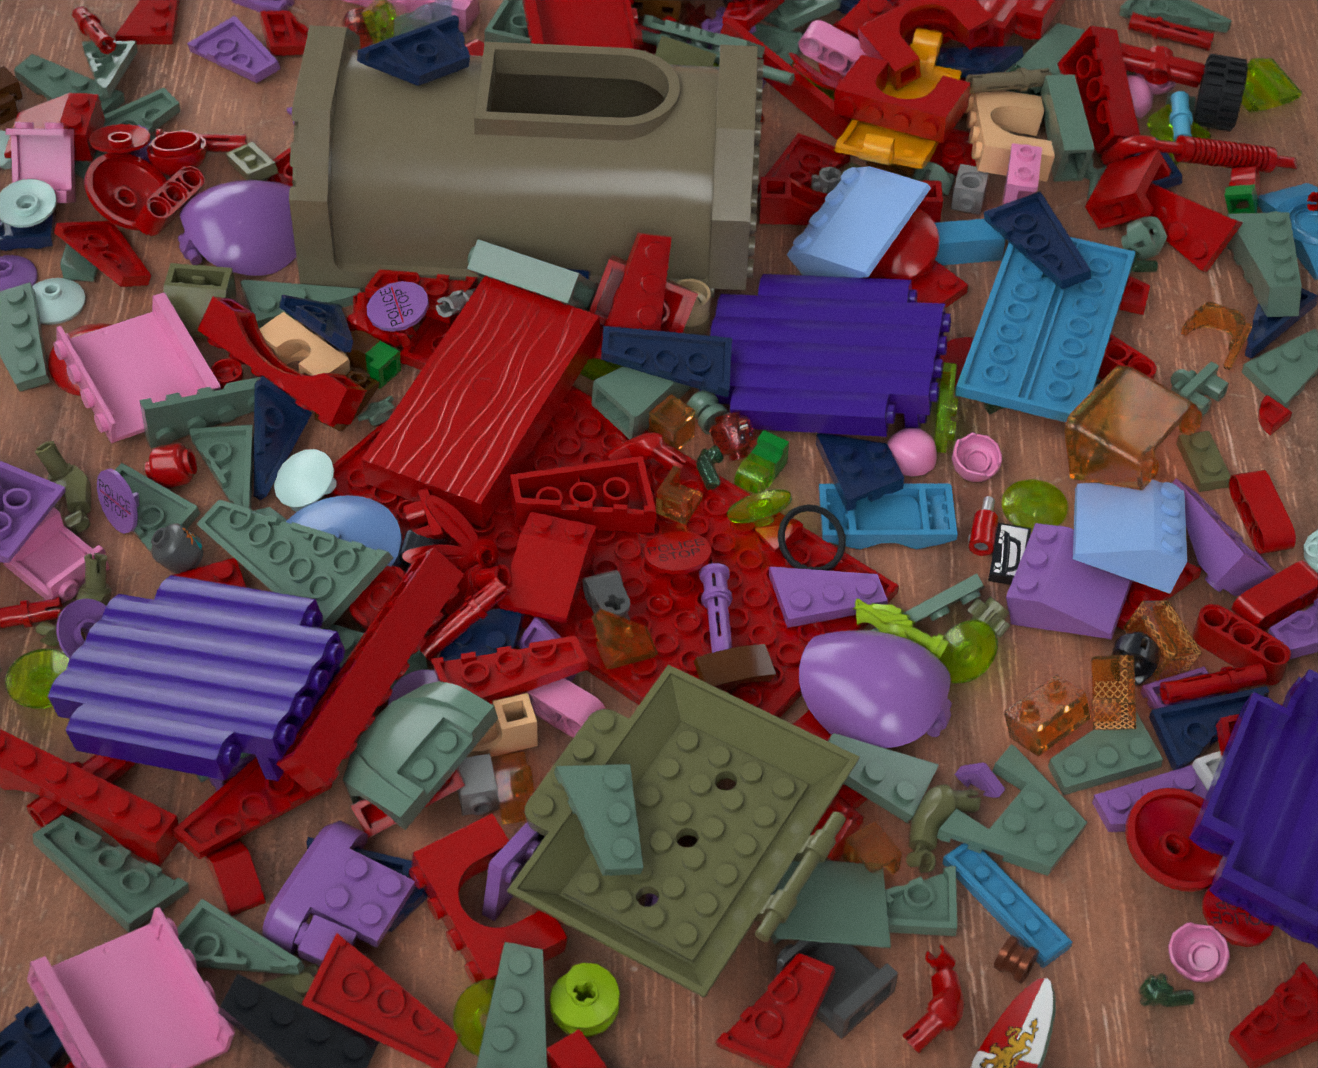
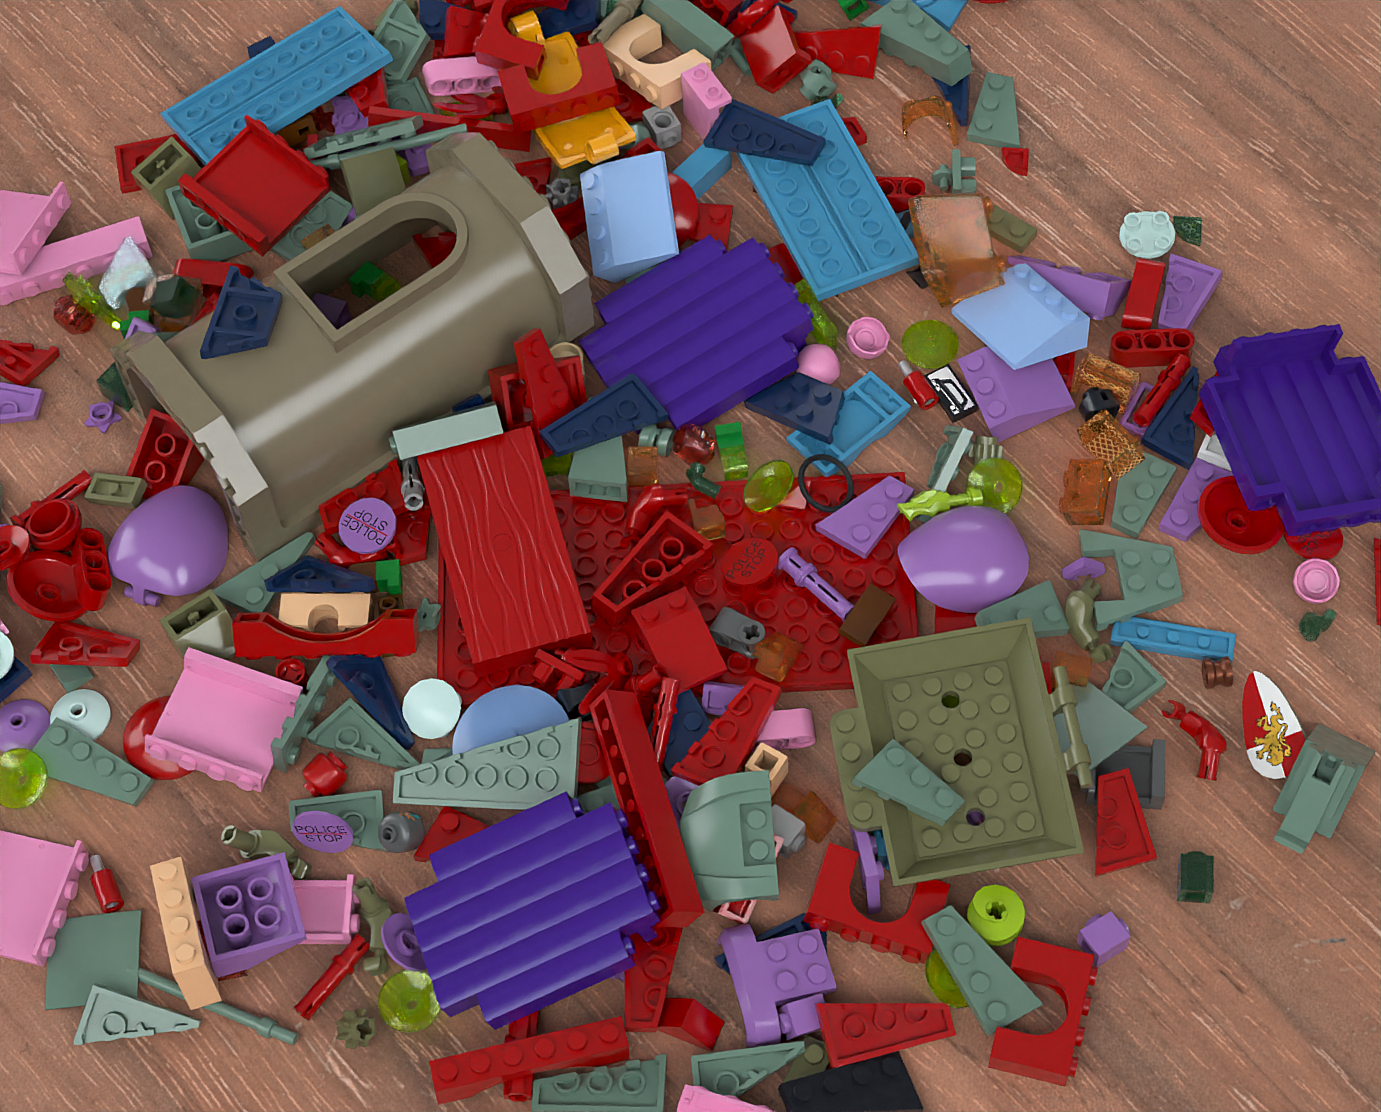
camera: 35 degrees left, 10 degrees up
(1262, 512) = (1077, 239): red beam -> none

